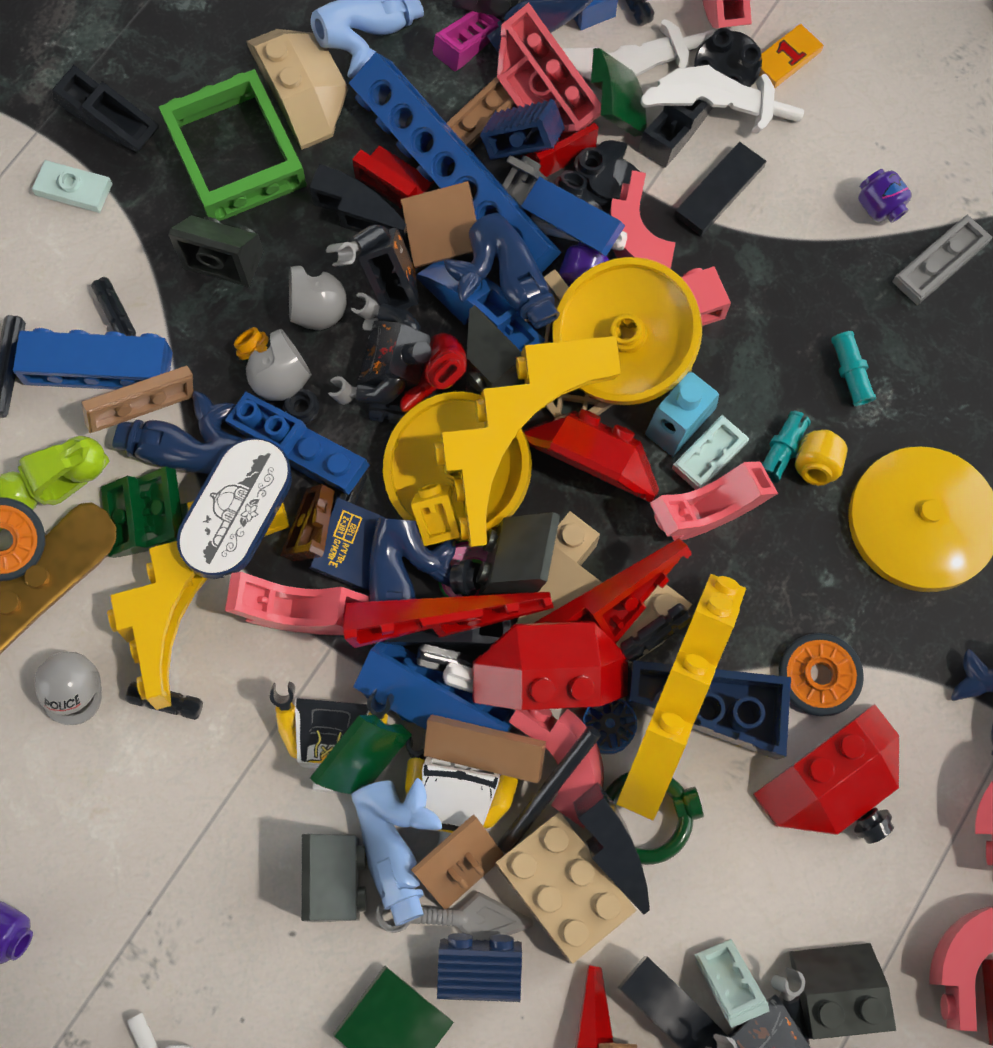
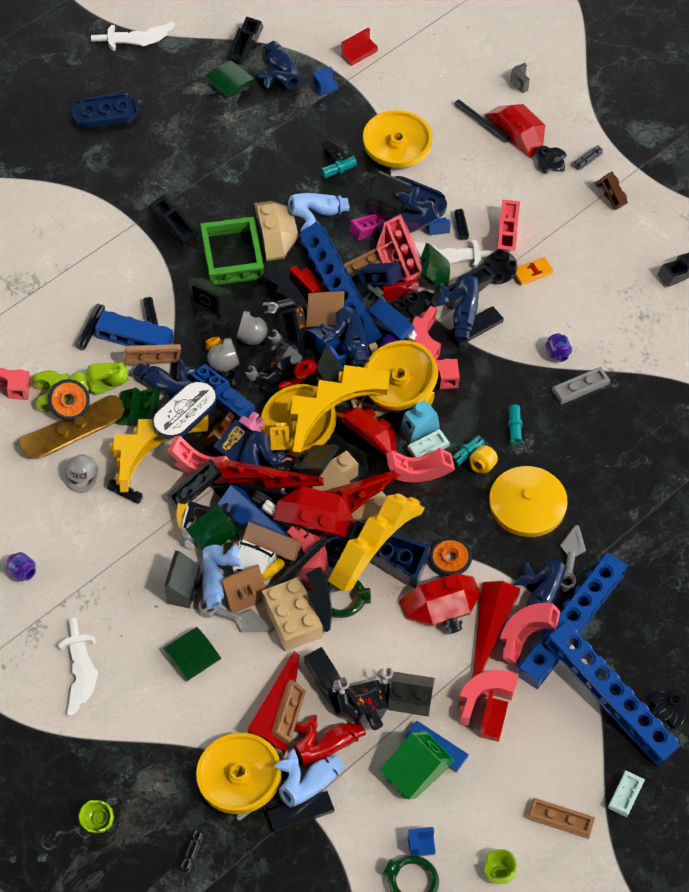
camera: 15 degrees right, 15 degrees down
(72, 186) = (146, 252): light aqua plate -> none
(299, 656) = (196, 483): none -> black tile
(373, 497) = (251, 423): none -> bright pink tile
(479, 968) = (240, 636): dark blue brick -> none
(656, 632) = (368, 511): black axle -> none
(701, 166) = (466, 310): none -> dark blue piece
(704, 83) = (489, 279): white sword -> none
(731, 983) = (359, 671): light aqua plate -> none
(942, 771) = (495, 607): none -> red wedge

